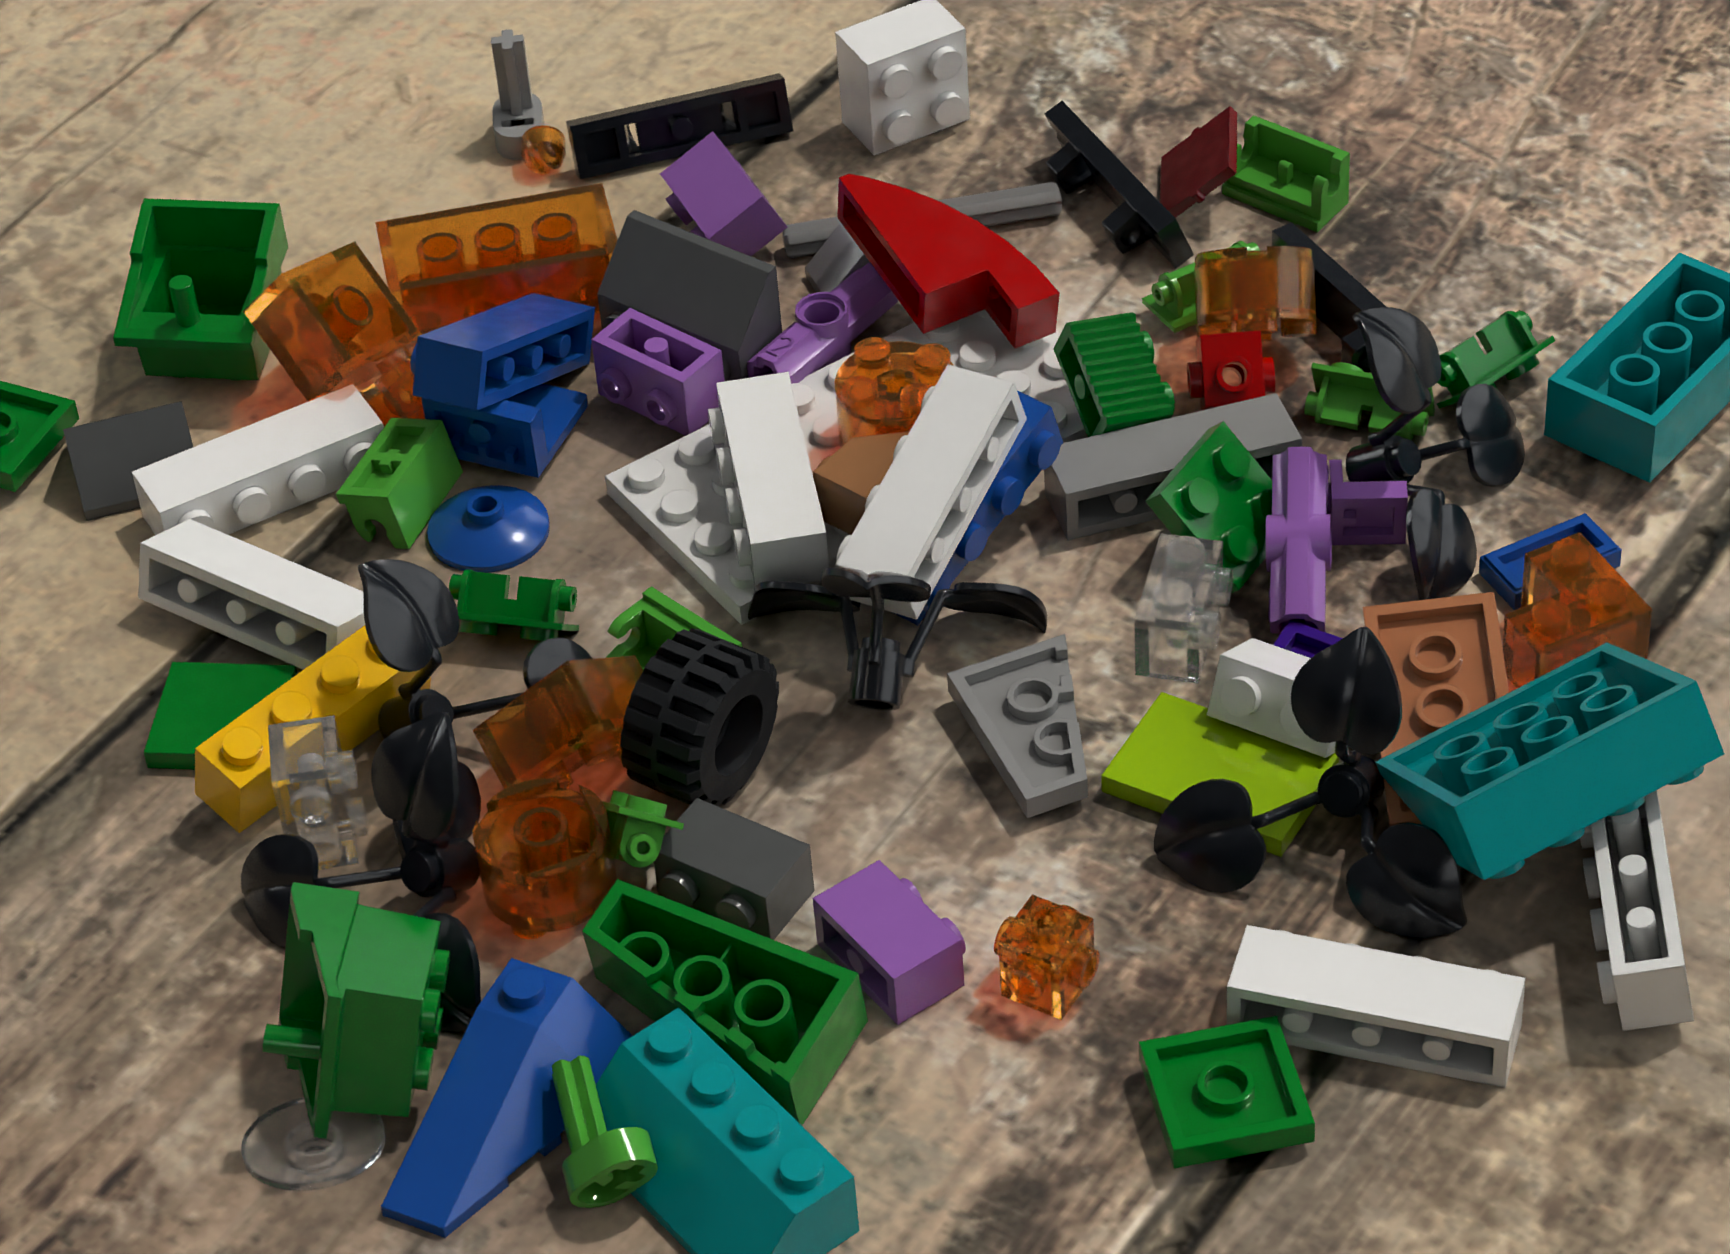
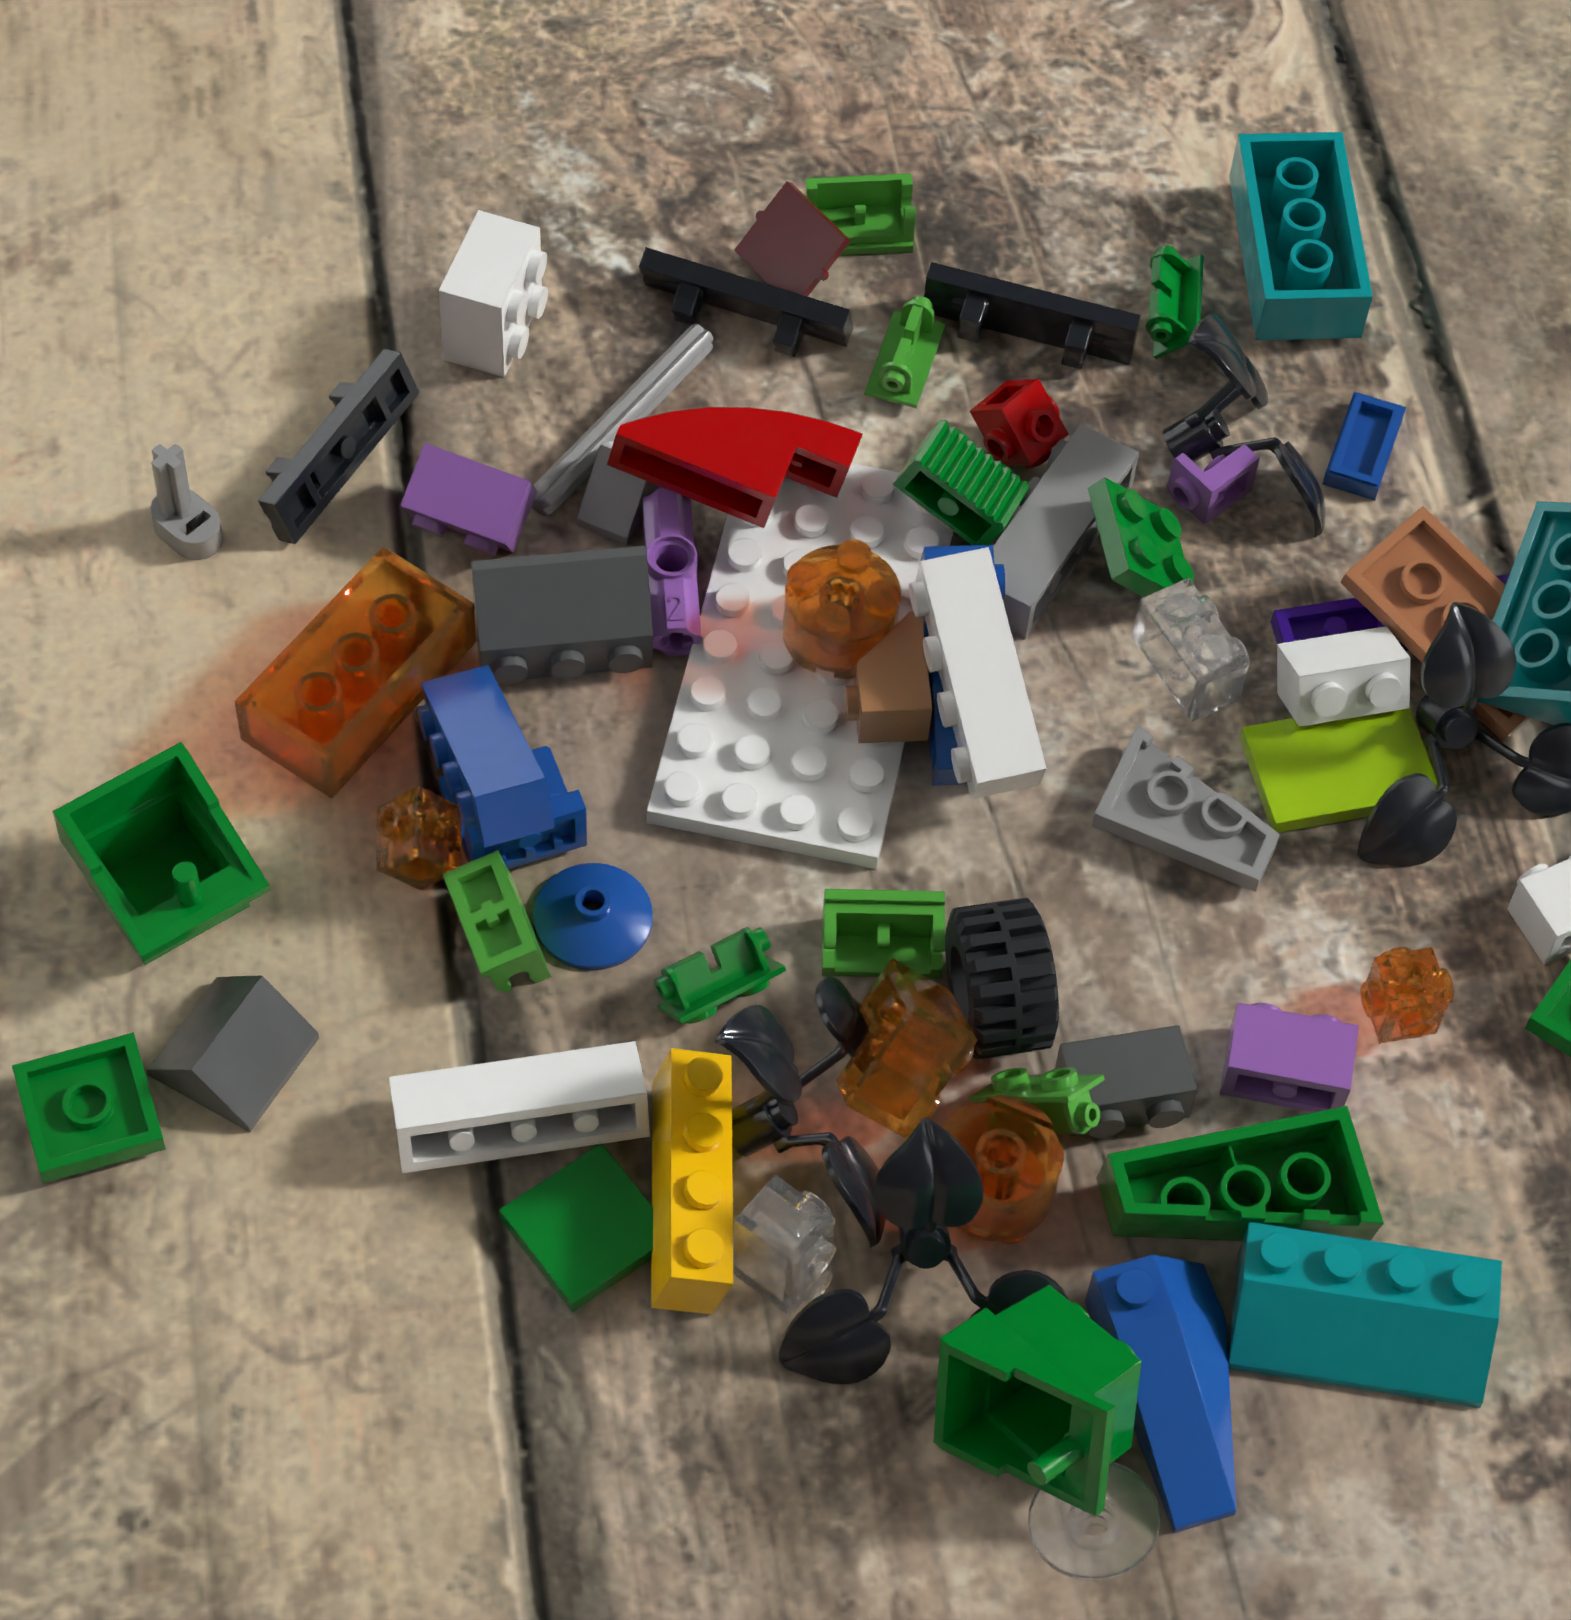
camera: 50 degrees left, 15 degrees up
(261, 466) = (371, 990): white brick -> none
(331, 321) = (313, 821): clear orange brick -> none
(550, 146) = (240, 535): clear orange hinge -> none
(601, 1162) = (1299, 1384): bright green piece -> none
(657, 371) = (602, 692): medium lavender brick -> none
(771, 480) = (813, 735): white brick -> none
(878, 664) = (1044, 837): black plant -> none
(1256, 291) = (984, 345): clear orange brick -> none
(1298, 539) = (1224, 543): medium lavender piece -> none
(1347, 391) = (1101, 390): bright green hinge -> none
(1570, 608) = (1446, 475): clear orange brick -> none

